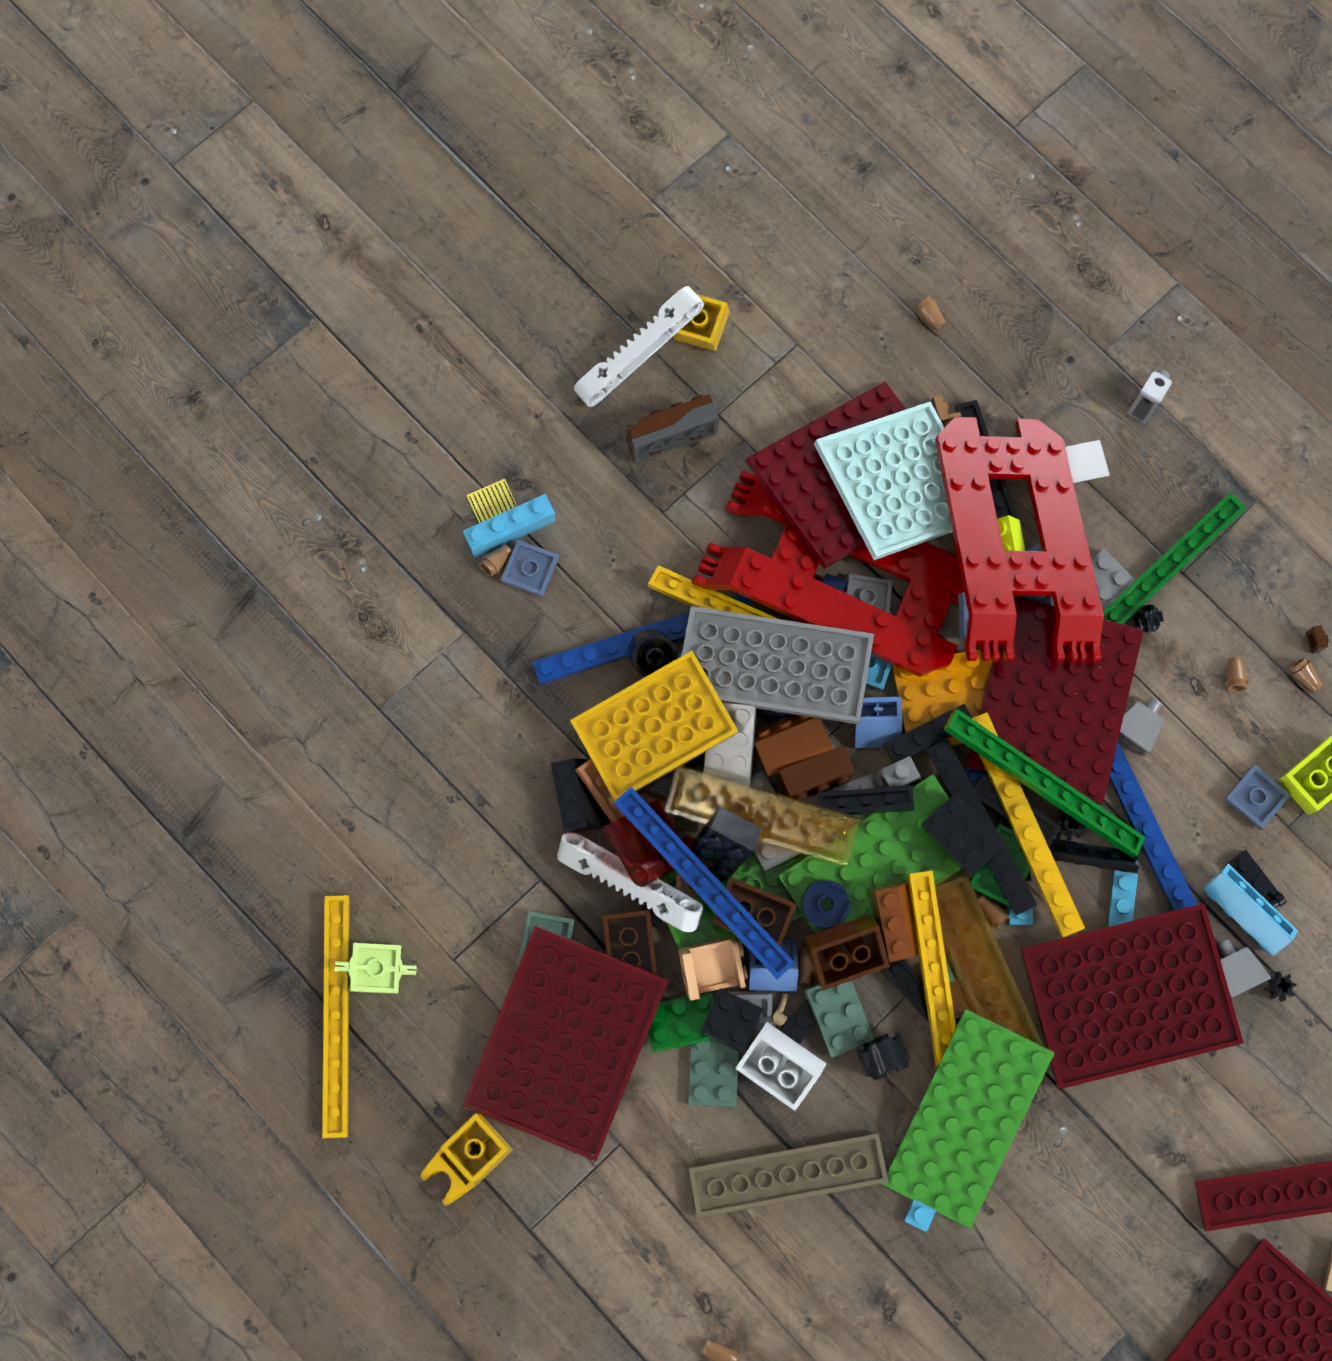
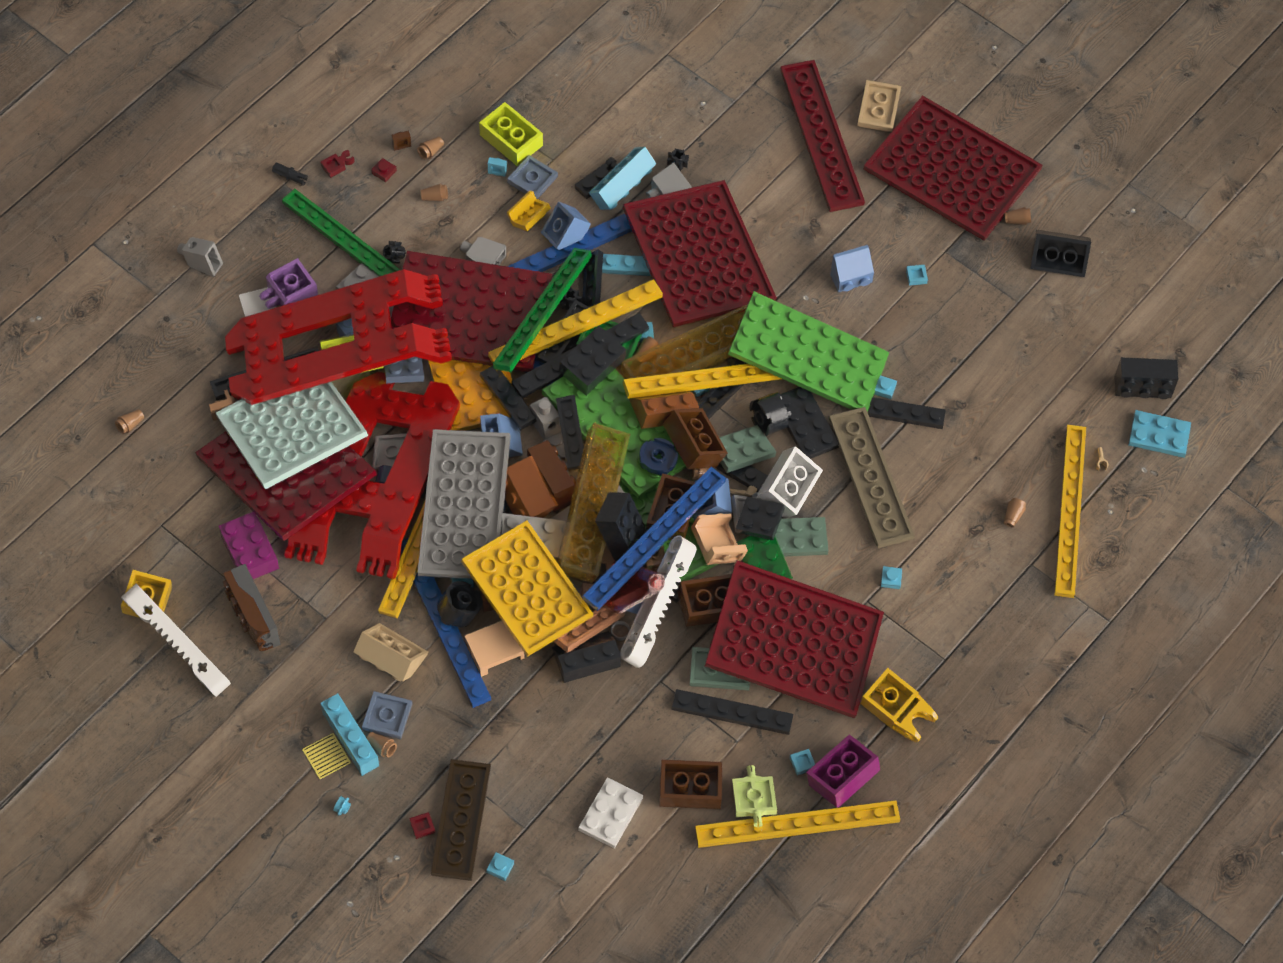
camera: 95 degrees left, 15 degrees down
(335, 676) = (500, 866): none -> medium azure plate
(382, 803) = (610, 812): none -> white plate
(387, 1076) = (843, 771): none -> magenta brick
(393, 596) = (422, 825): none -> dark red plate
(394, 638) = (461, 820): none -> dark brown plate
(397, 895) = (691, 784): none -> reddish brown brick
(412, 1032) = (802, 761): none -> medium azure plate
(428, 514) = (342, 805): none -> medium azure plate
(489, 959) = (732, 712): none -> black plate
(596, 682) = (492, 647): none -> light nougat panel
(608, 577) = (390, 652): none -> tan slope
(646, 1180) = (891, 577): none -> medium azure plate
(752, 429) = (249, 545): none -> magenta brick
(874, 1103) = (808, 423): none -> black plate
(879, 1238) = (907, 413): none -> black plate
(1087, 1285) = (916, 275): none -> medium azure plate
(1094, 1196) = (852, 269): none -> slope
(1104, 482) = (288, 285): none -> medium lavender hinge
(1177, 828) = (565, 226): none -> medium blue slope
(1204, 785) = (527, 211): none -> yellow bracket
(1270, 504) = (289, 173): none -> black axle
(1274, 617) = (384, 170): none -> dark red plate
(1274, 754) = (497, 166): none -> medium azure plate
(1283, 558) = (334, 165): none -> dark red plate

